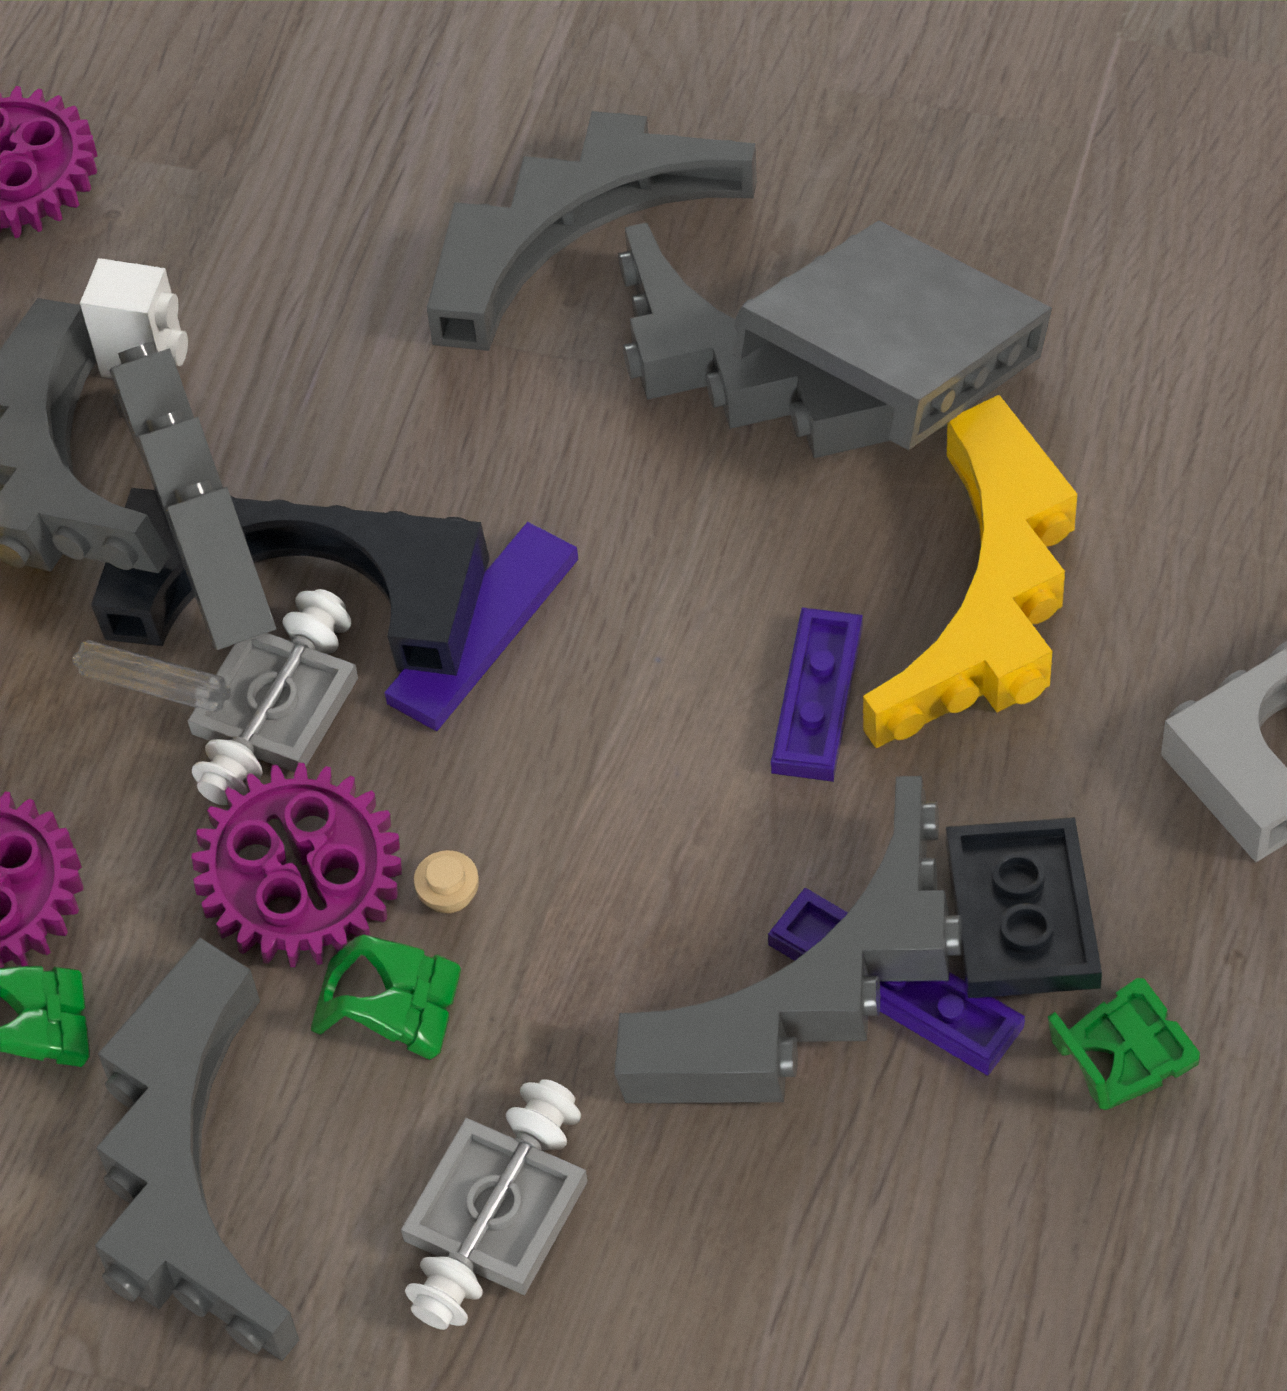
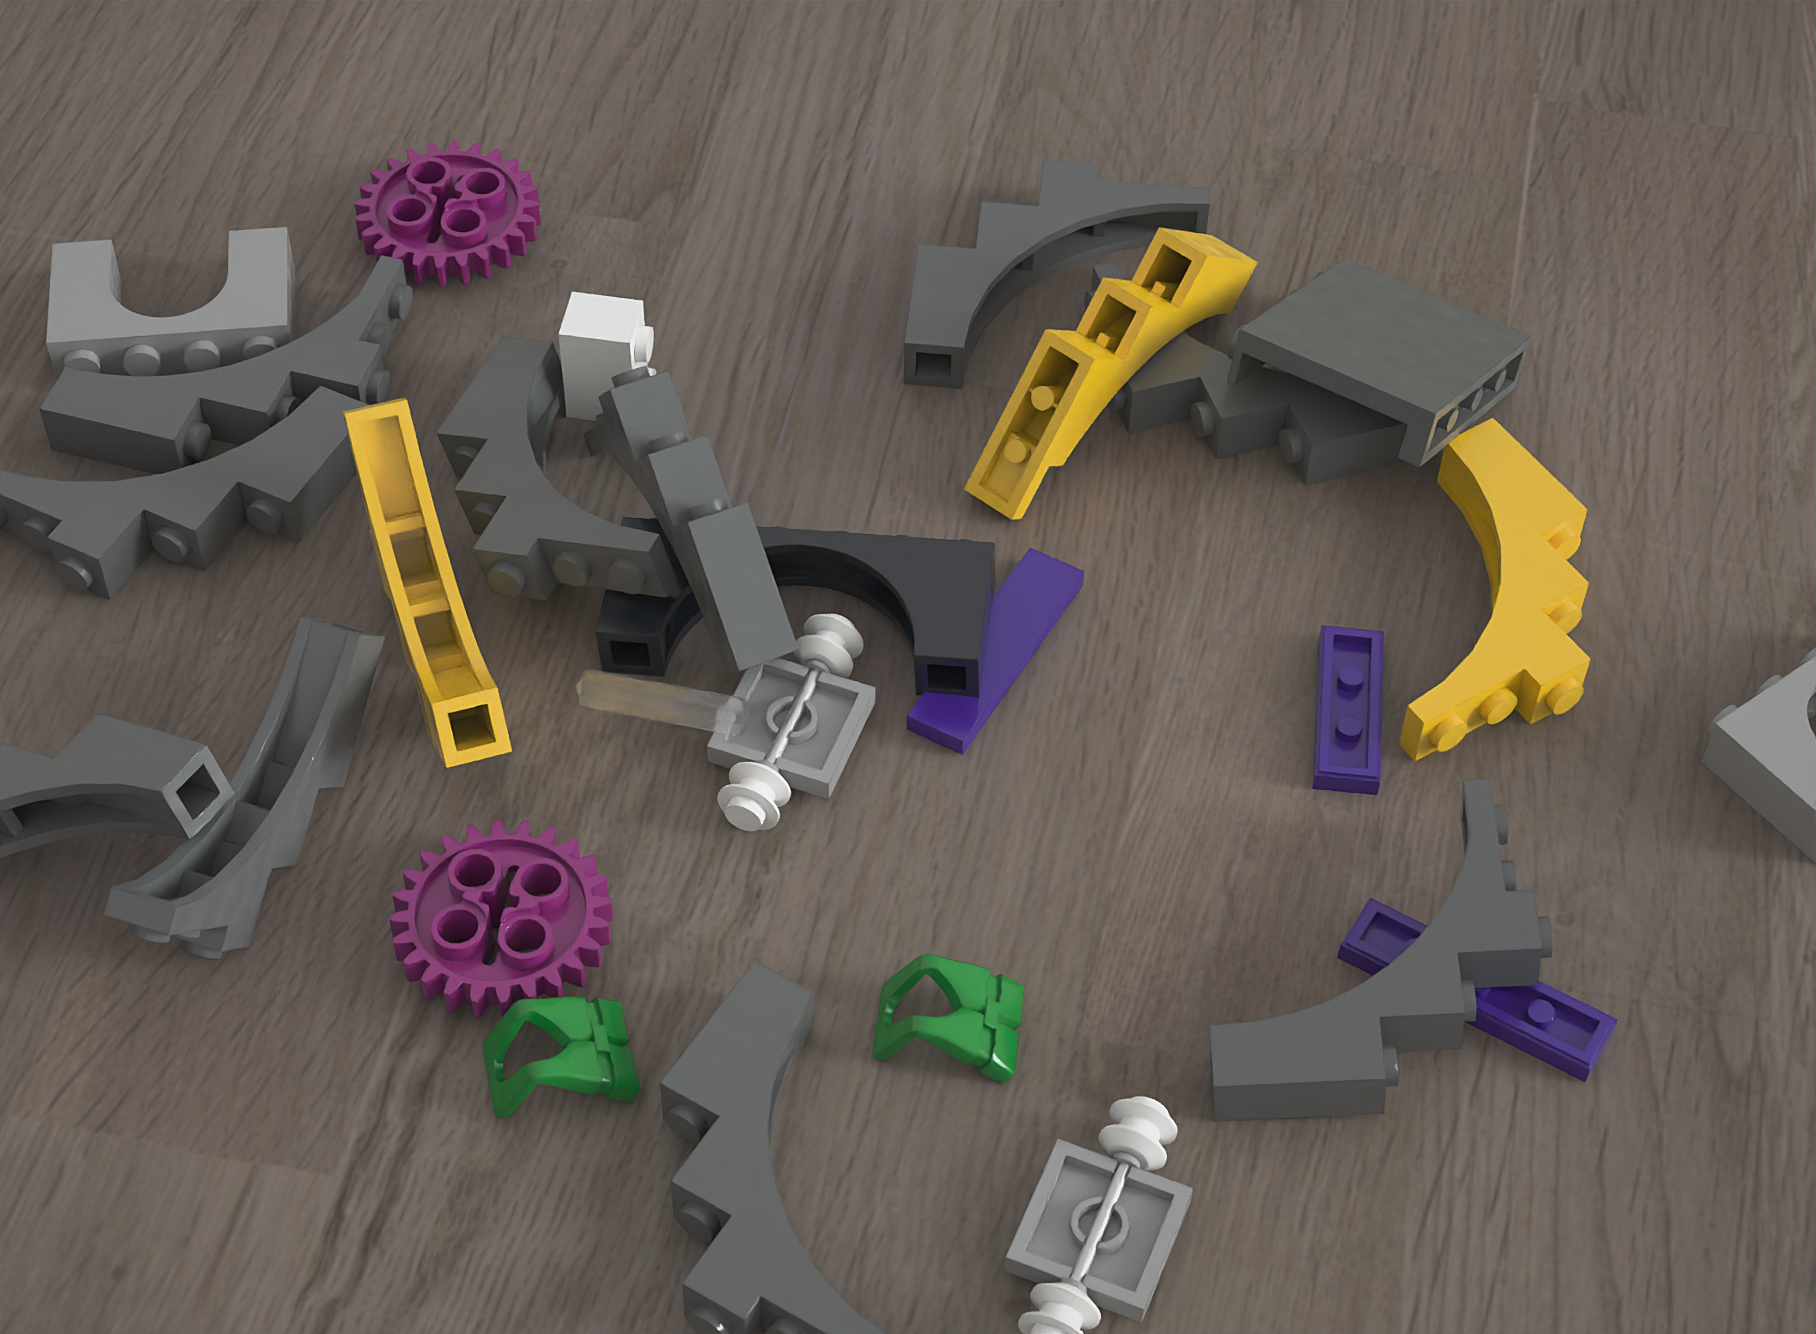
camera: 10 degrees left, 5 degrees down
(244, 888) = (789, 910): magenta gear -> none
(446, 881) = (997, 901): tan plate -> none
(636, 295) = (1081, 370): none -> yellow arch
(1023, 908) = (1604, 911): black plate -> none
(1139, 1037) = (1735, 1035): green piece -> none

